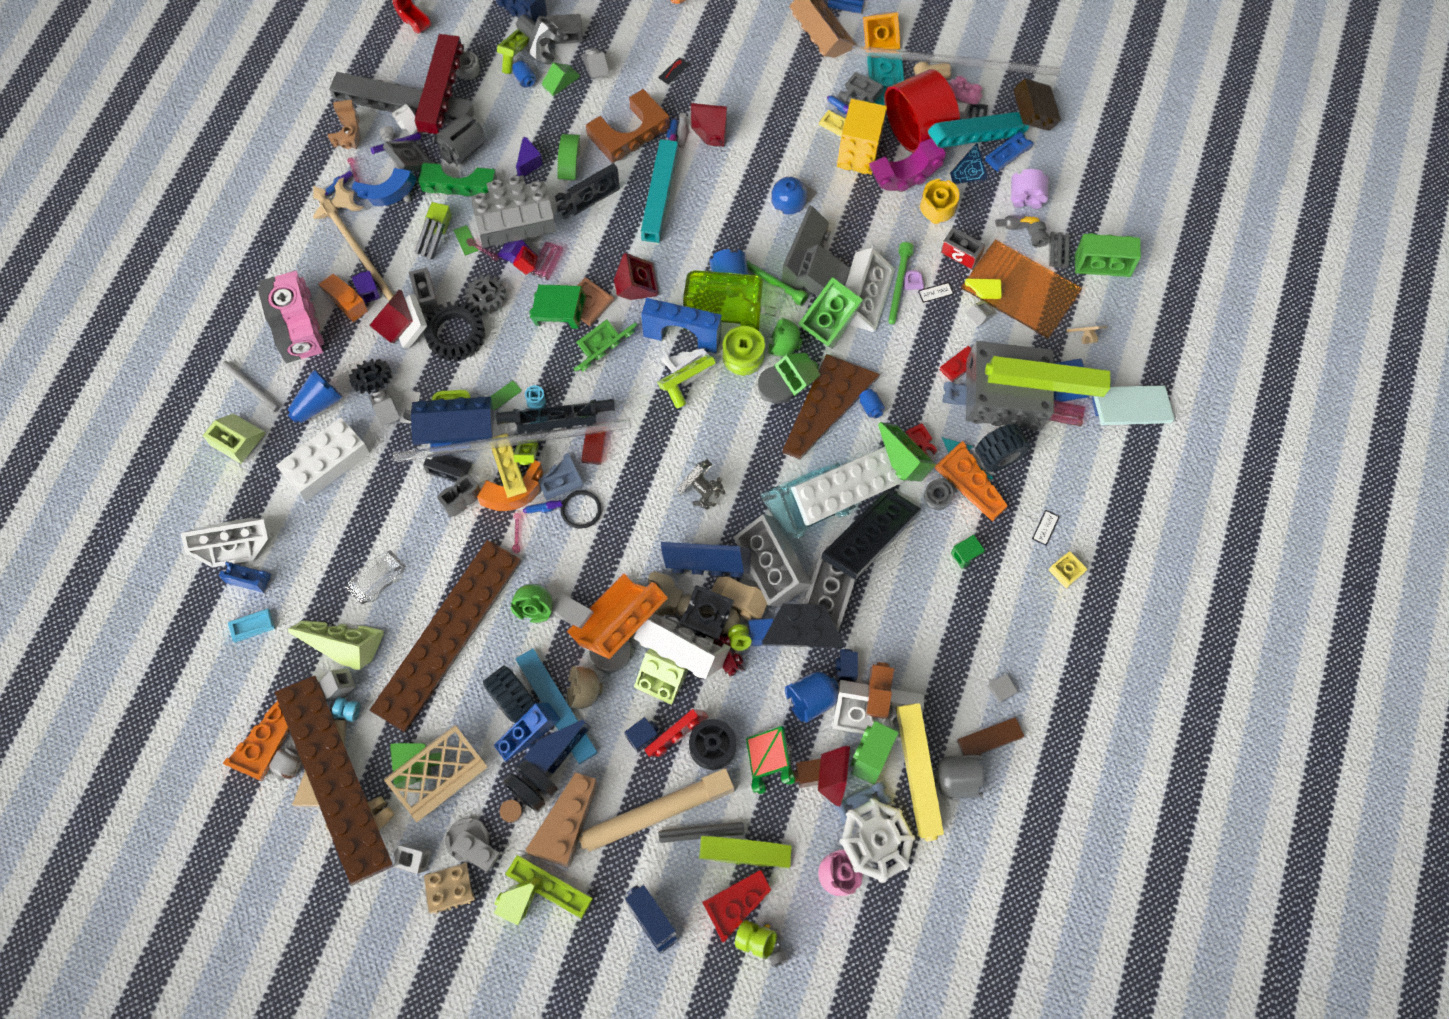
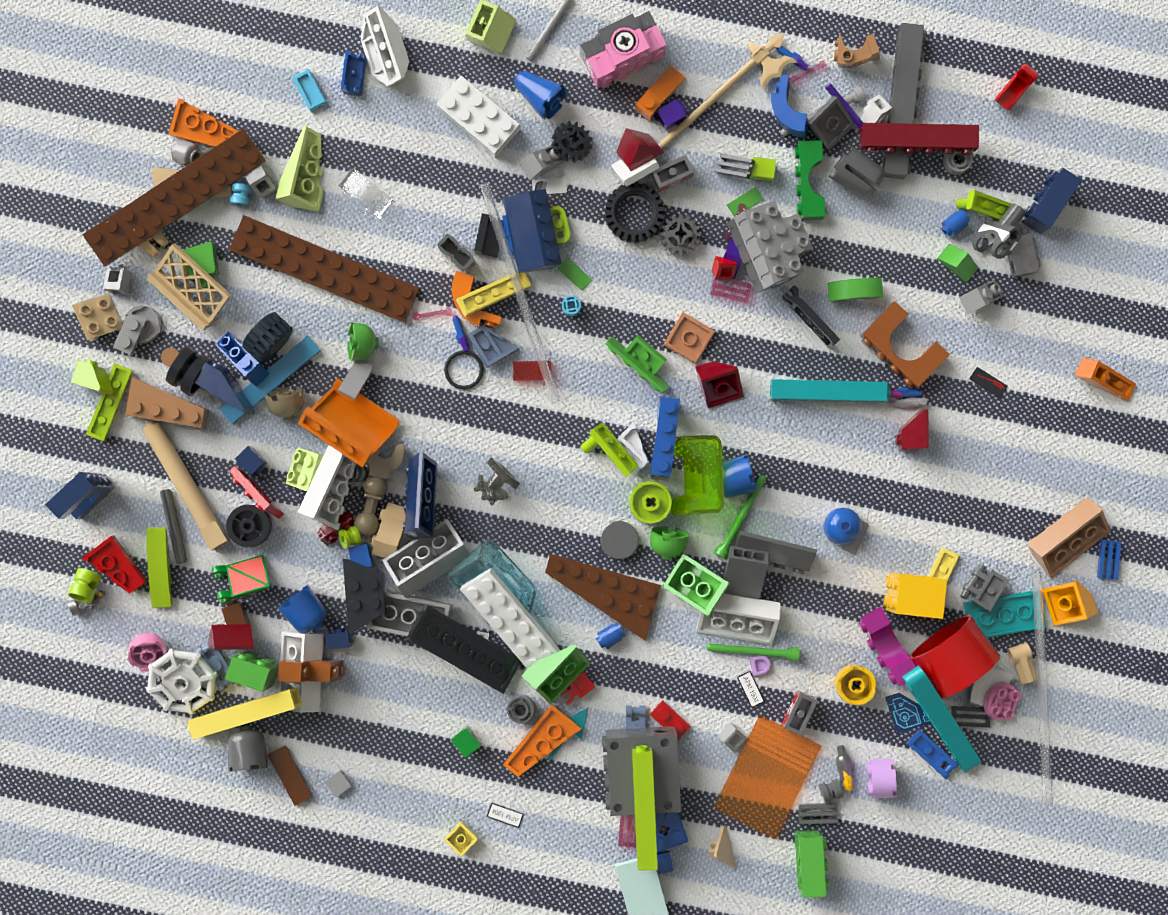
camera: 80 degrees right, 20 degrees up
(526, 453) = (506, 308): lime plate -> none
(528, 158) = (848, 247): dark purple slope -> none
(555, 417) = (551, 330): black plate -> none
(558, 304) = (674, 310): green panel -> none
(710, 626) = (376, 501): black brick -> none
(797, 371) = (629, 561): bright green torso -> none
(841, 107) = (965, 569): piece -> none
(985, 287) = (759, 740): neon yellow tile -> none
(1002, 447) = (573, 768): black wheel -> none
(1036, 104) = (991, 780): dark brown brick -> none

